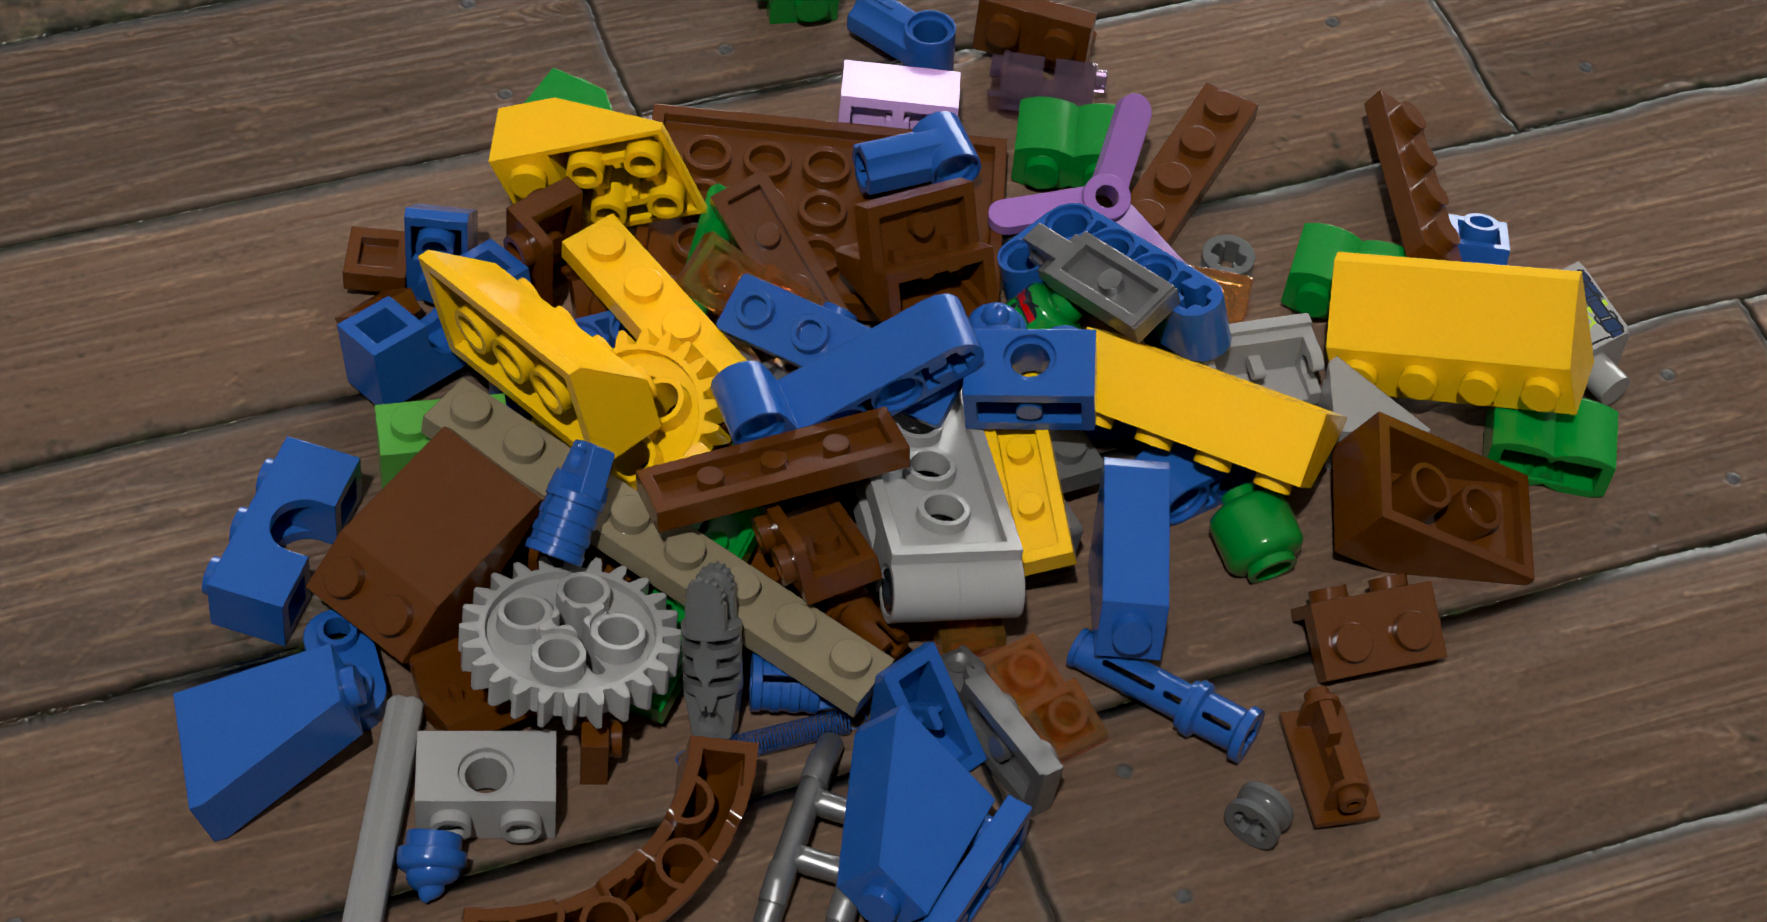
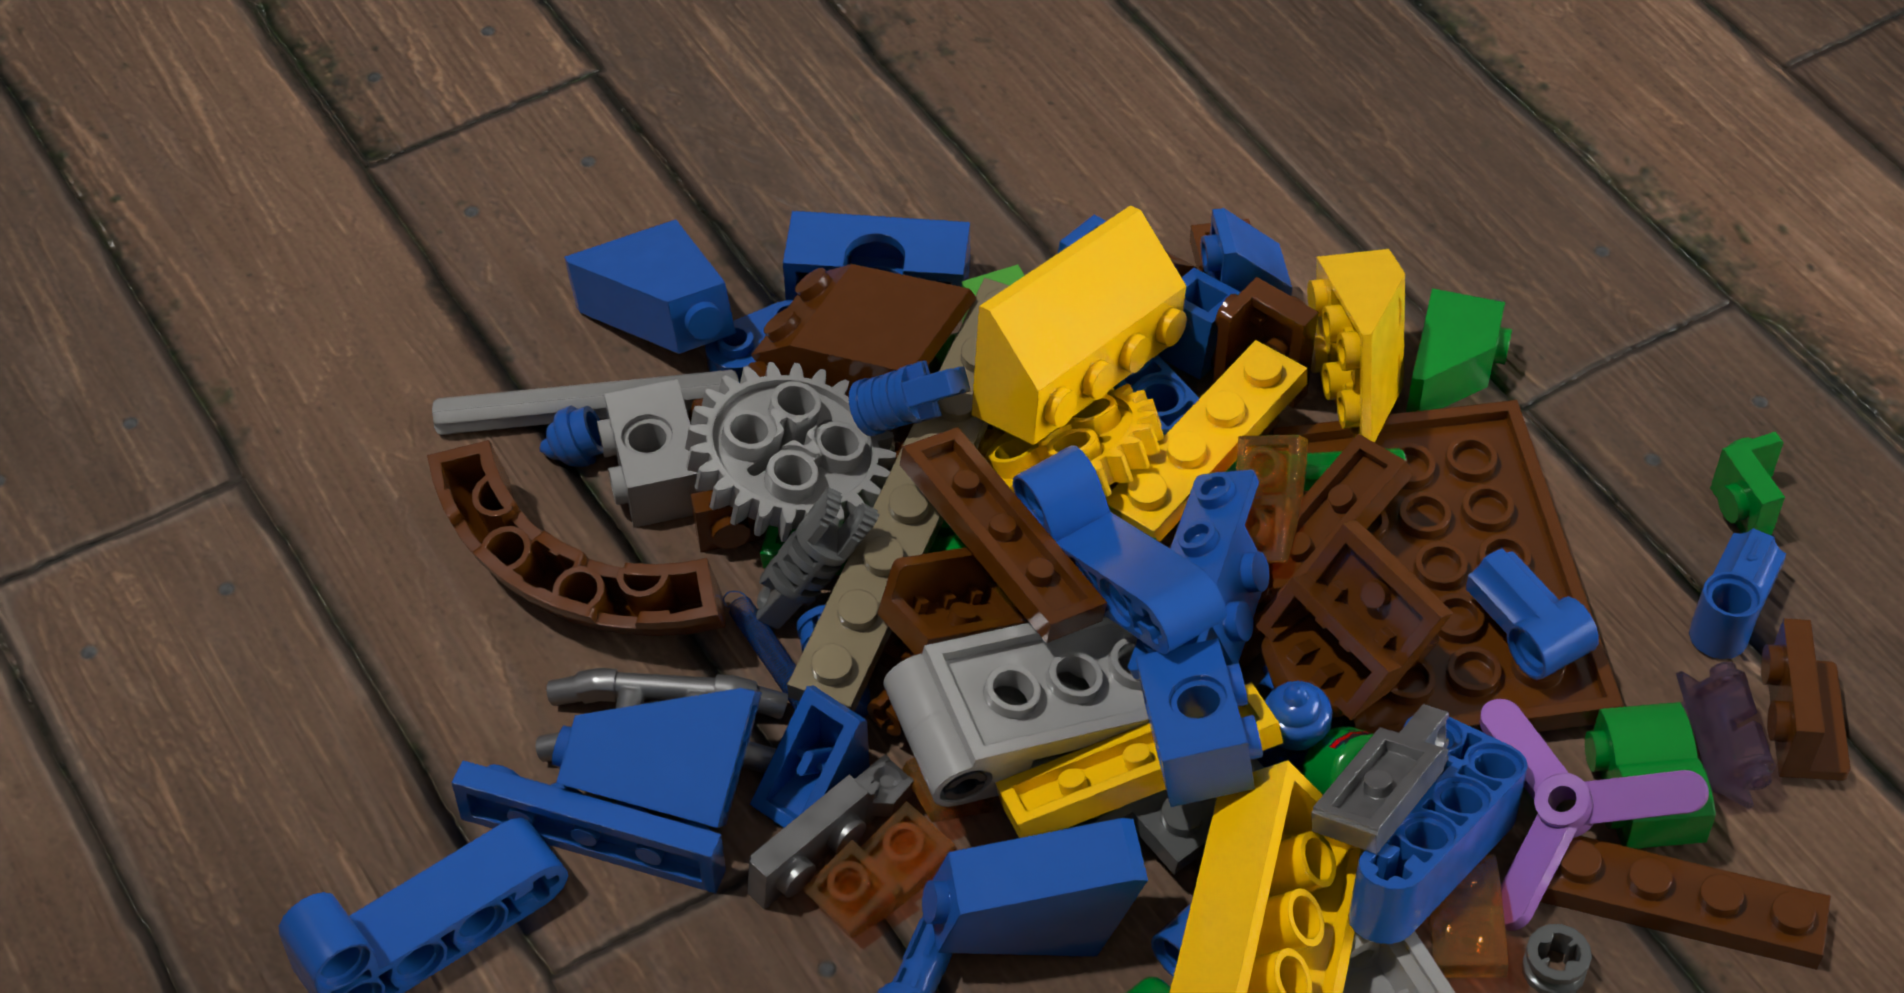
camera: 85 degrees right, 0 degrees up
(895, 94) = (1632, 602): hinge -> none

